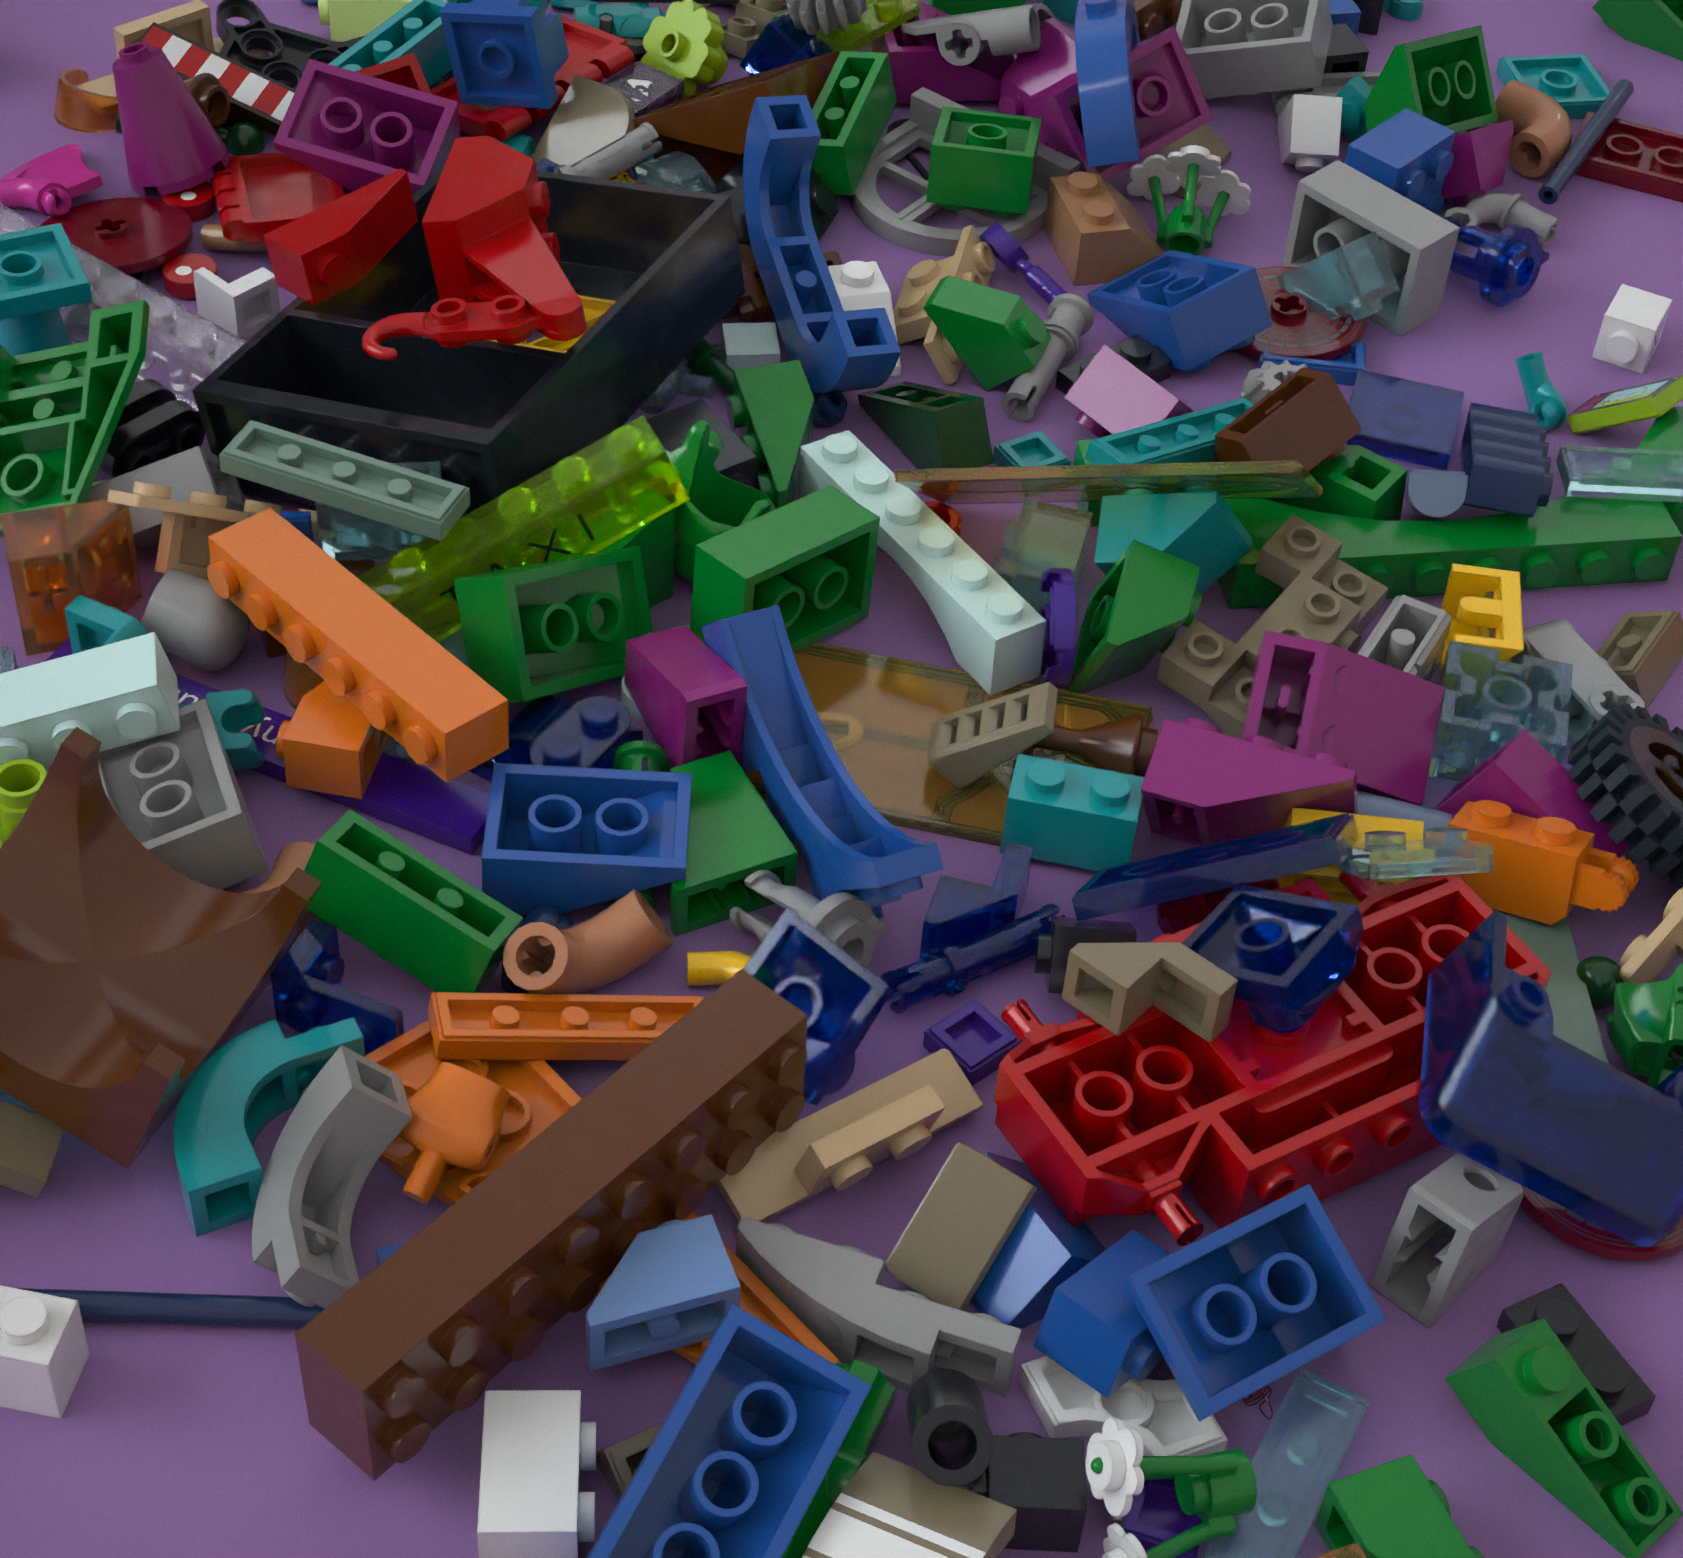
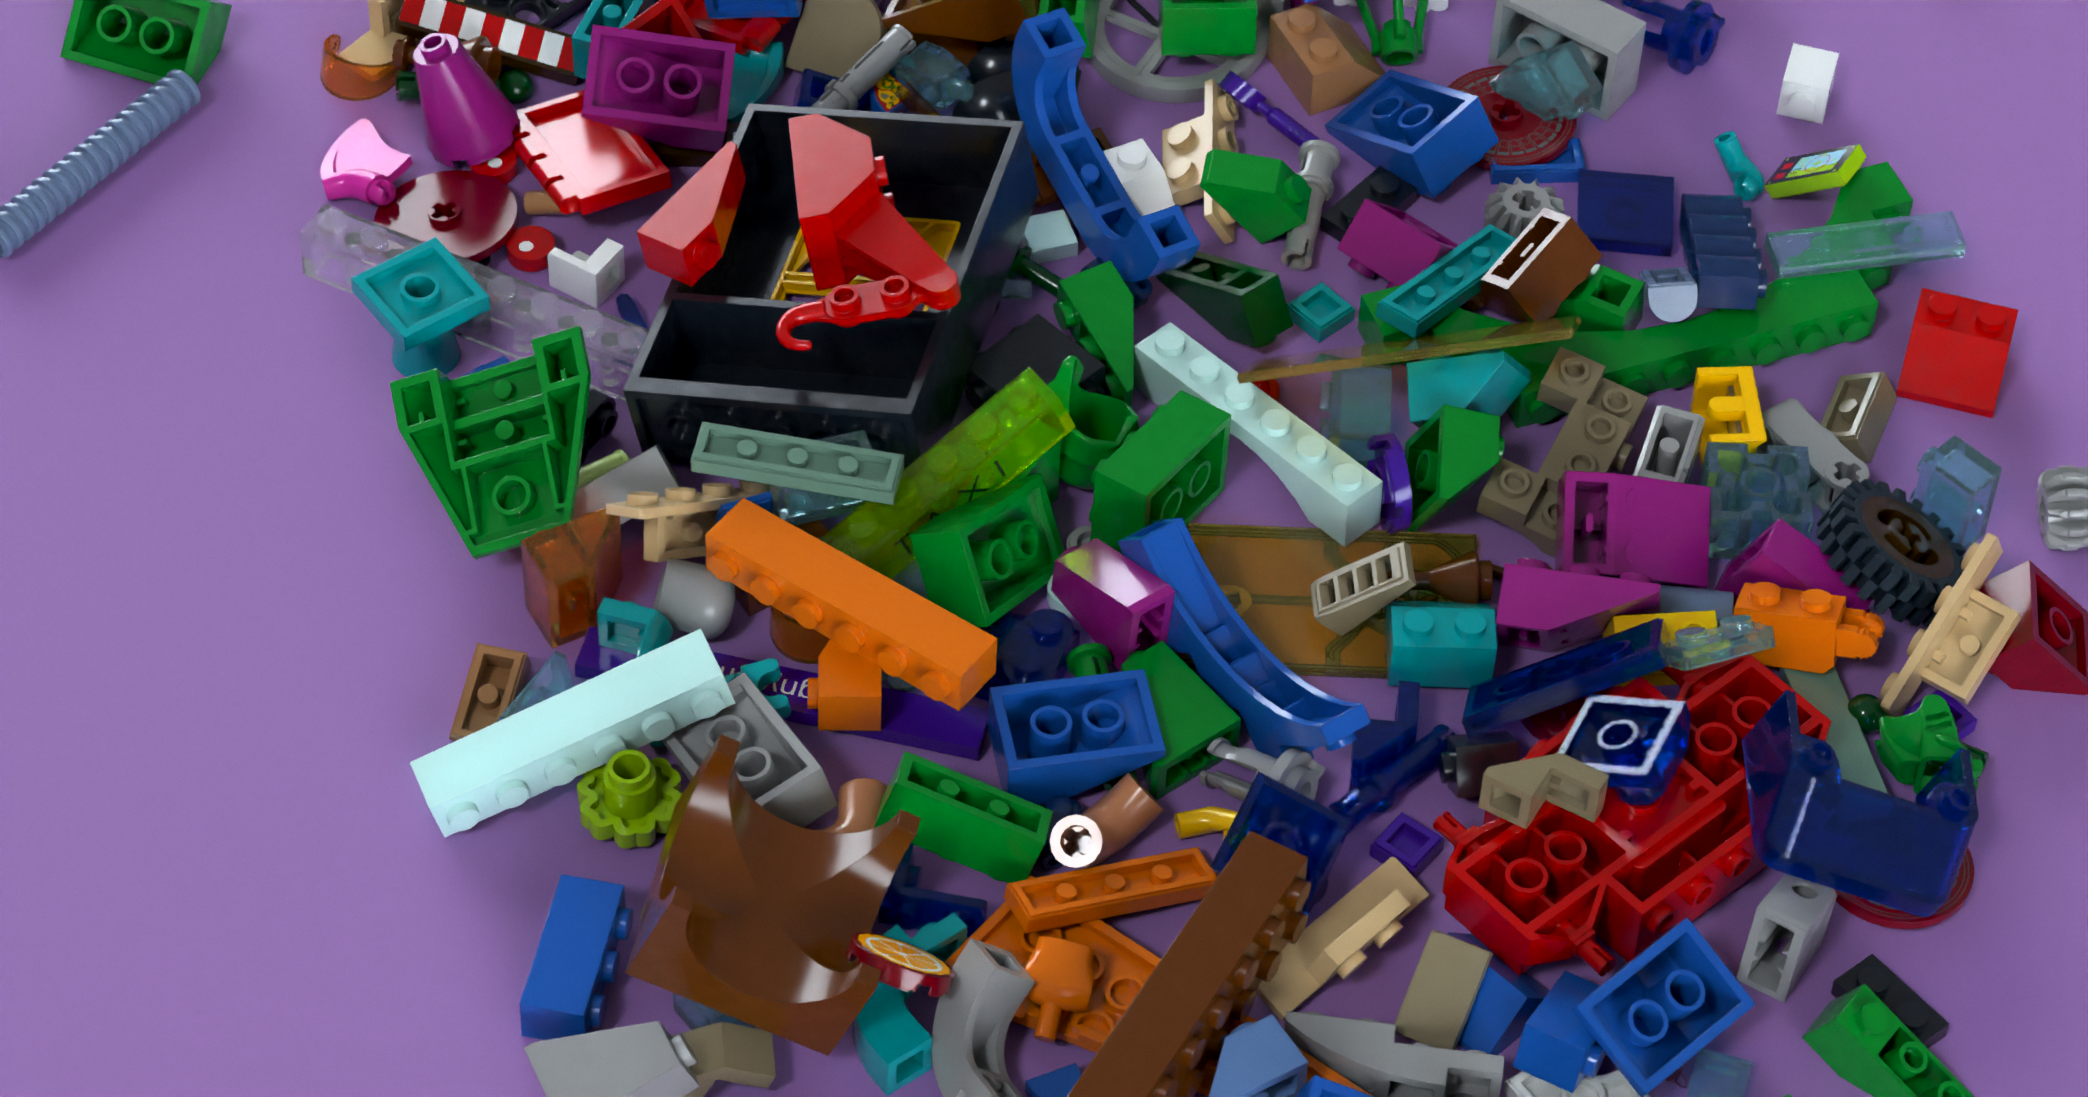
camera: 10 degrees left, 5 degrees up
(236, 1058) = (901, 963): none -> tile

